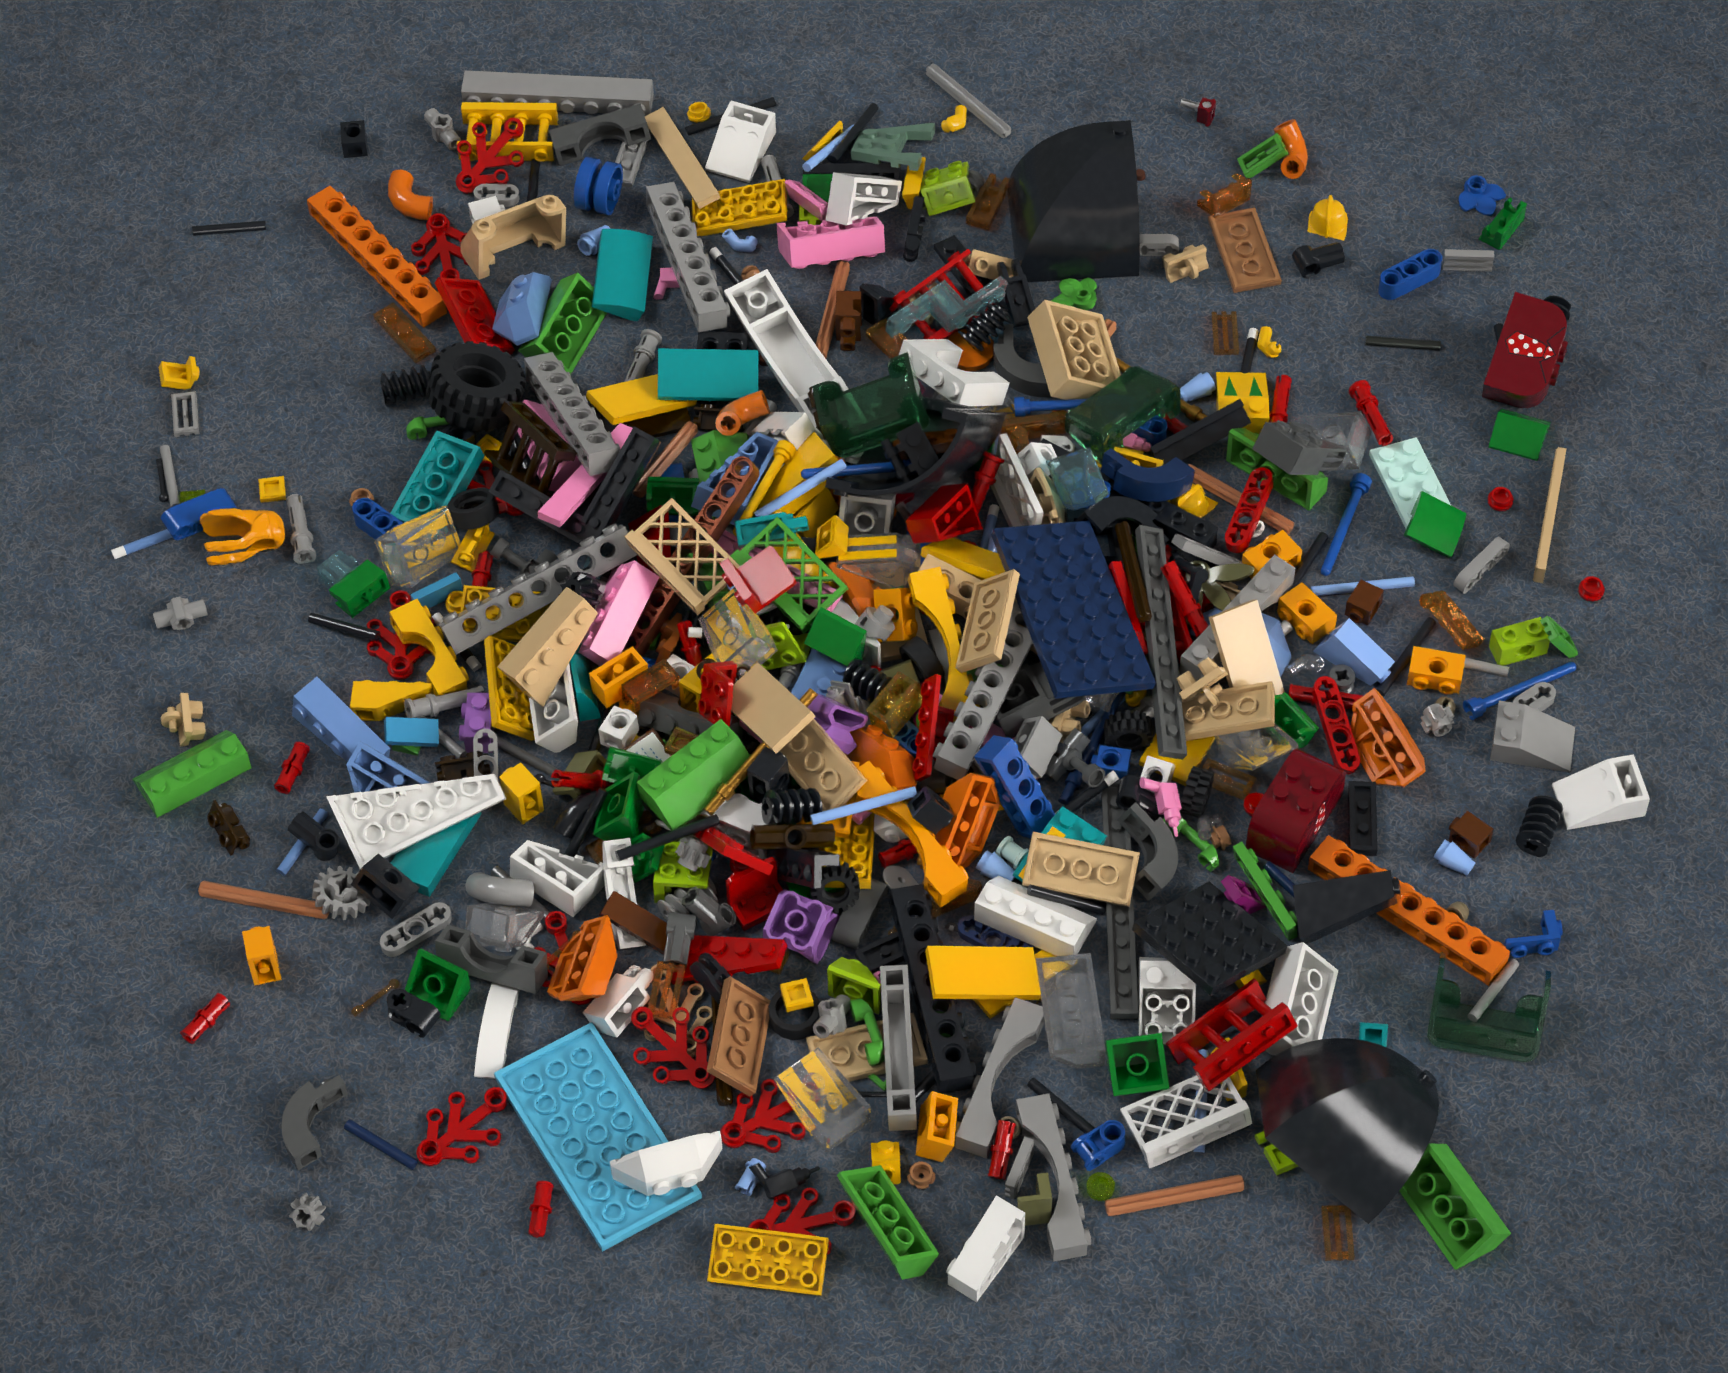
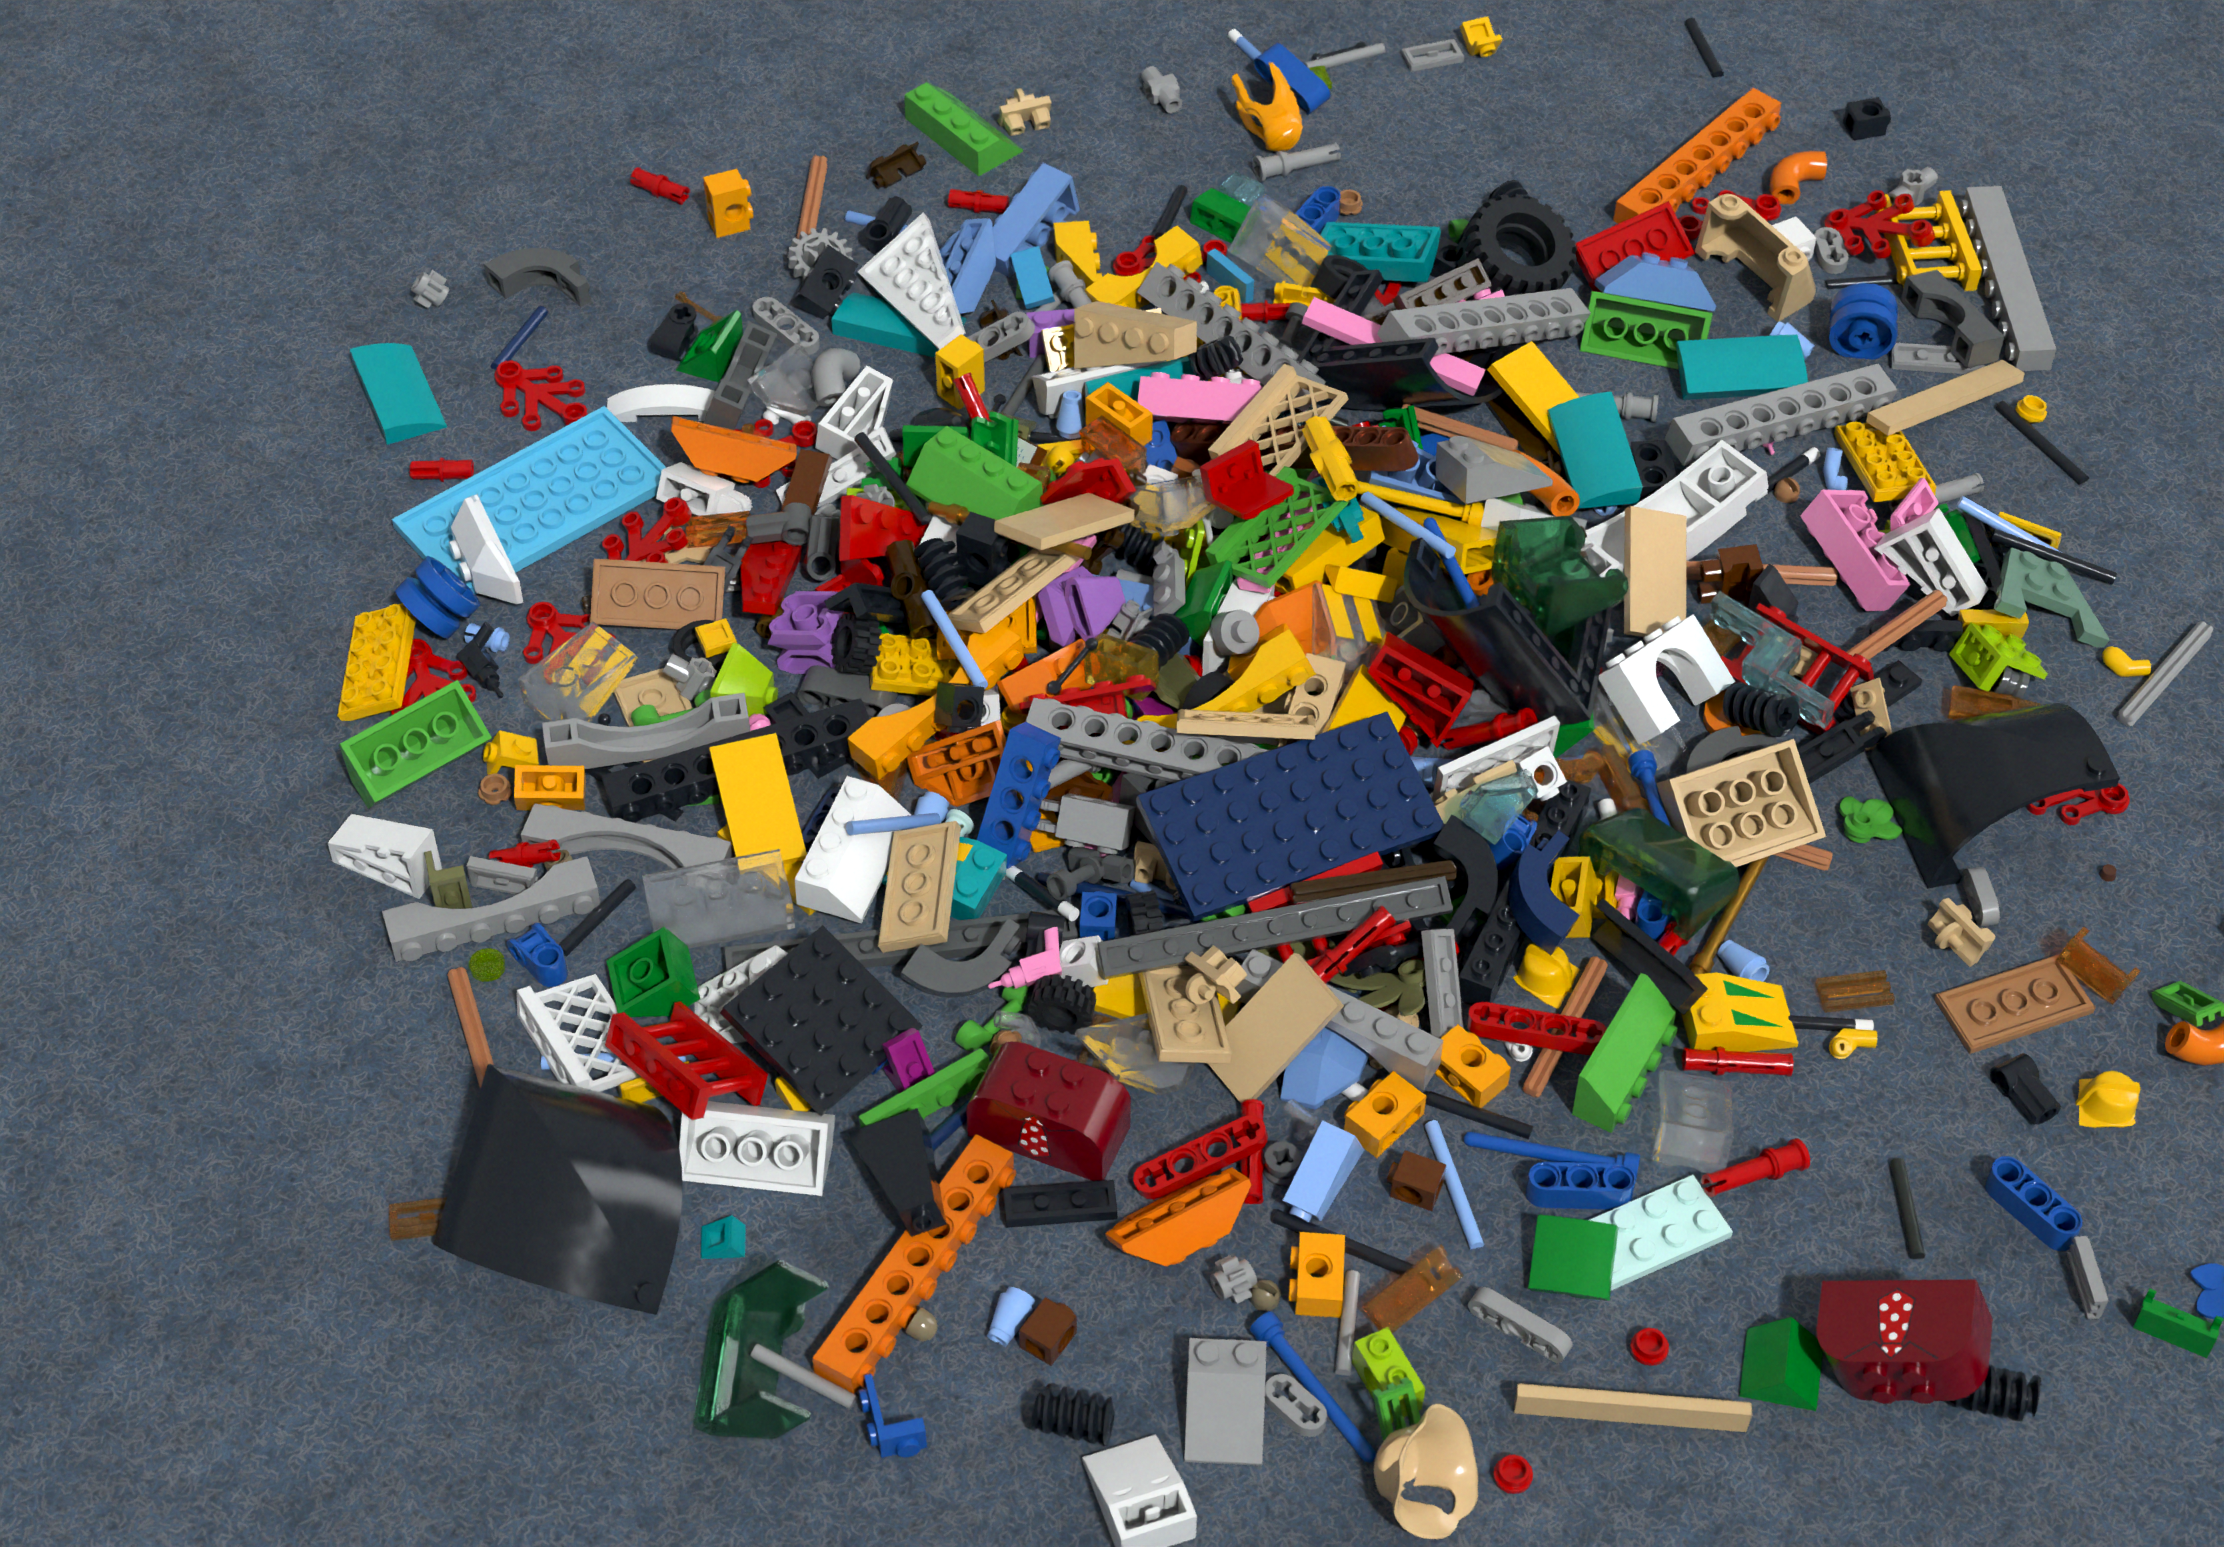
camera: 80 degrees right, 5 degrees down
(272, 489) = (1348, 134): yellow tile -> none
(404, 332) = (1596, 205): clear orange plate -> none
(431, 1246) = (397, 390): none -> teal slope
(588, 720) = (1071, 415): none -> light blue cone
(615, 737) = (1052, 429): white brick -> none
(647, 725) = (1059, 459): none -> yellow hinge
(721, 1202) = (437, 597): none -> blue wheel
(741, 141) = (1998, 448): white slope -> none
(744, 517) = (1331, 458): none -> yellow piece
(761, 427) = (1485, 471): none -> light grey slope
(809, 664) = (1168, 580): none -> light grey hinge
(839, 358) = (1654, 569): none -> tan tile
(909, 751) = (1055, 686): none -> black hinge
(918, 232) = (1900, 625): none -> nougat axle
(1021, 879) = (891, 823): none -> medium blue bar
(1066, 899) = (881, 869): black bar -> none
(1294, 720) = (1196, 1100): green hinge -> none
(1297, 448) = (1628, 1051): dark grey brick -> none
(1376, 511) = (1595, 1177): none -> blue beam
(1452, 1207) = (465, 1340): bright green slope -> none
(1586, 621) = (1438, 1455): none -> tan piece

